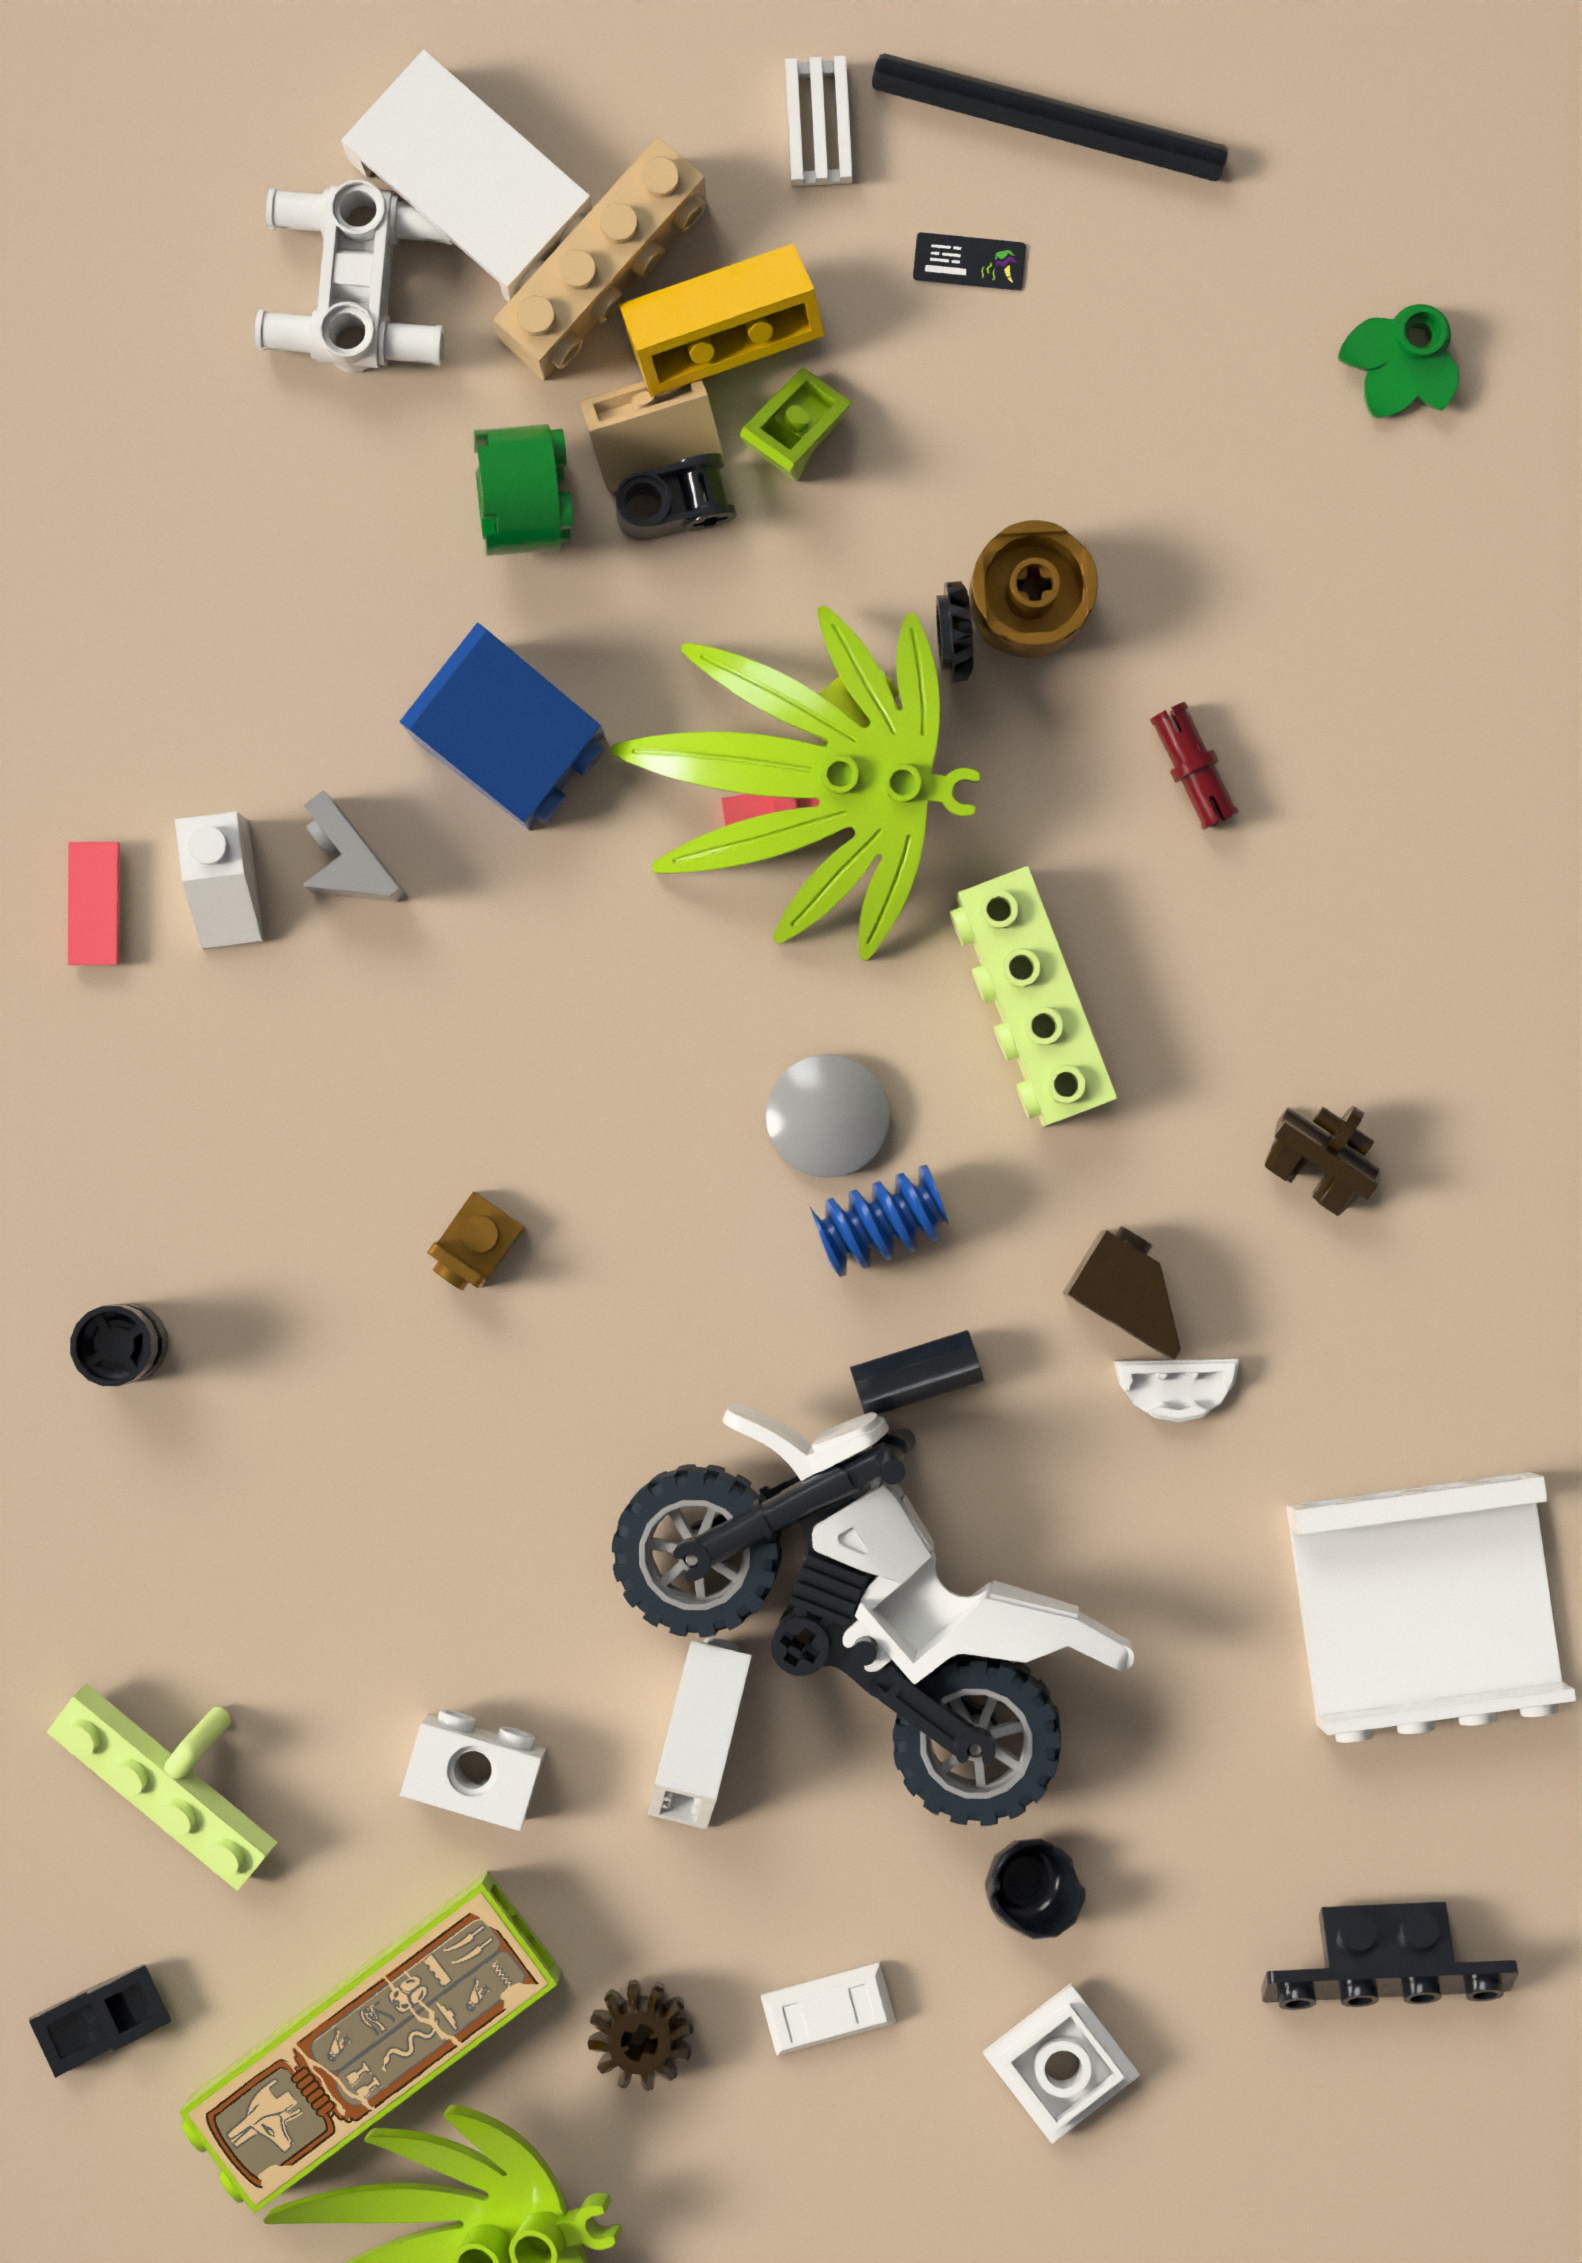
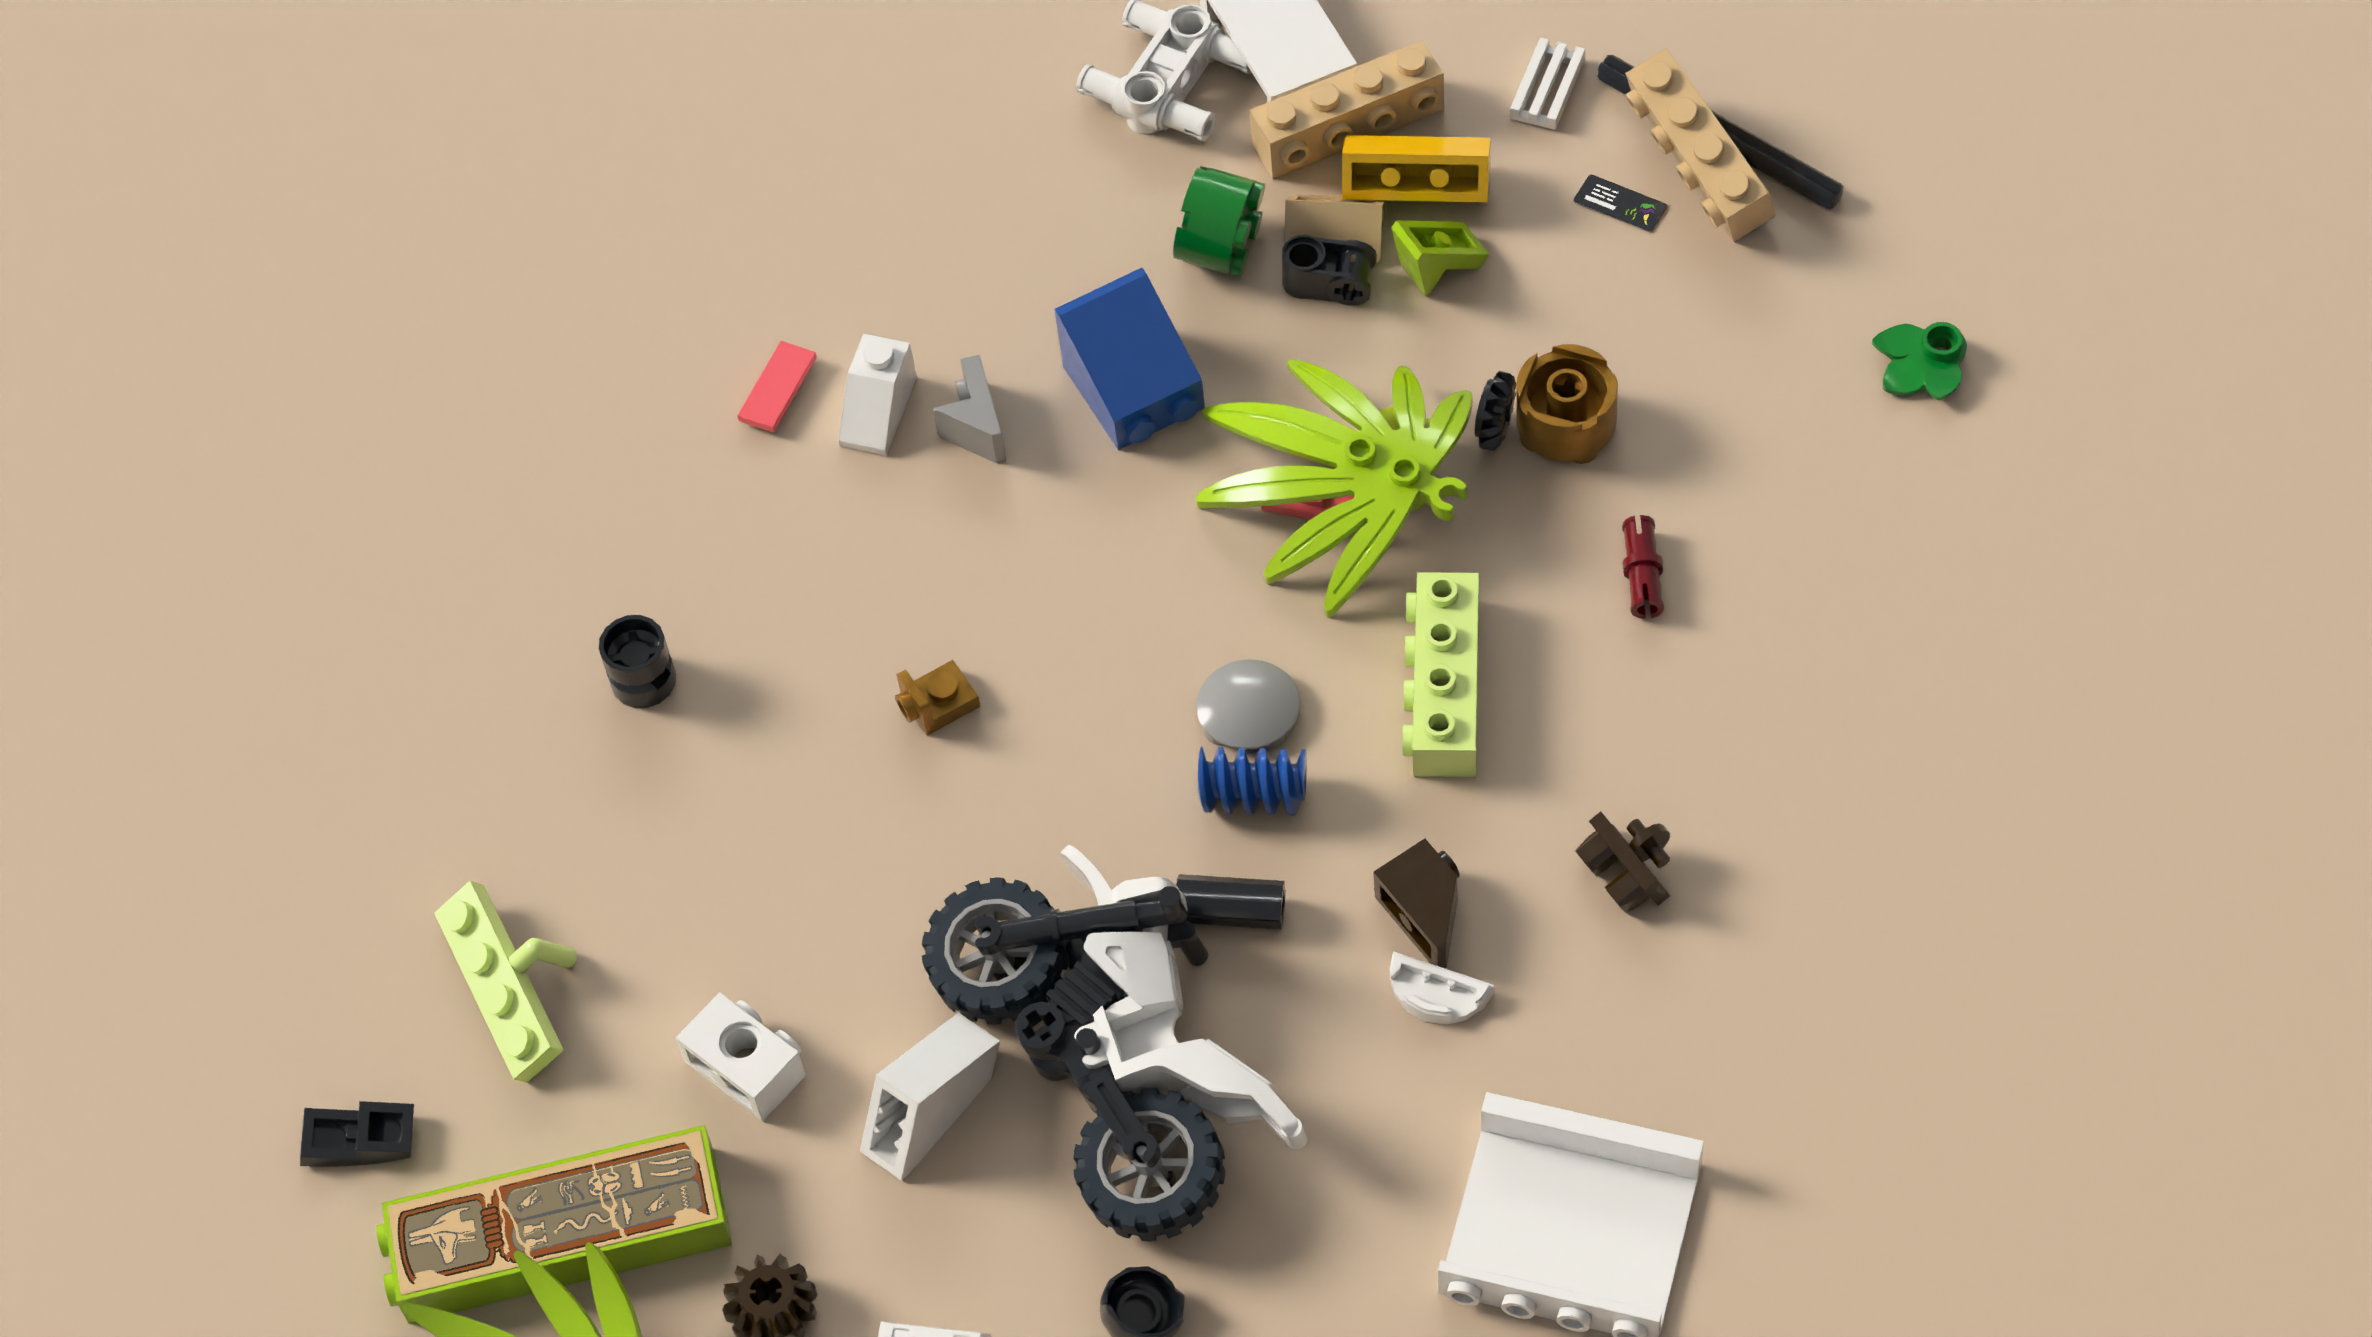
camera: 30 degrees right, 30 degrees down
(1047, 161) = (1699, 144): none -> tan brick

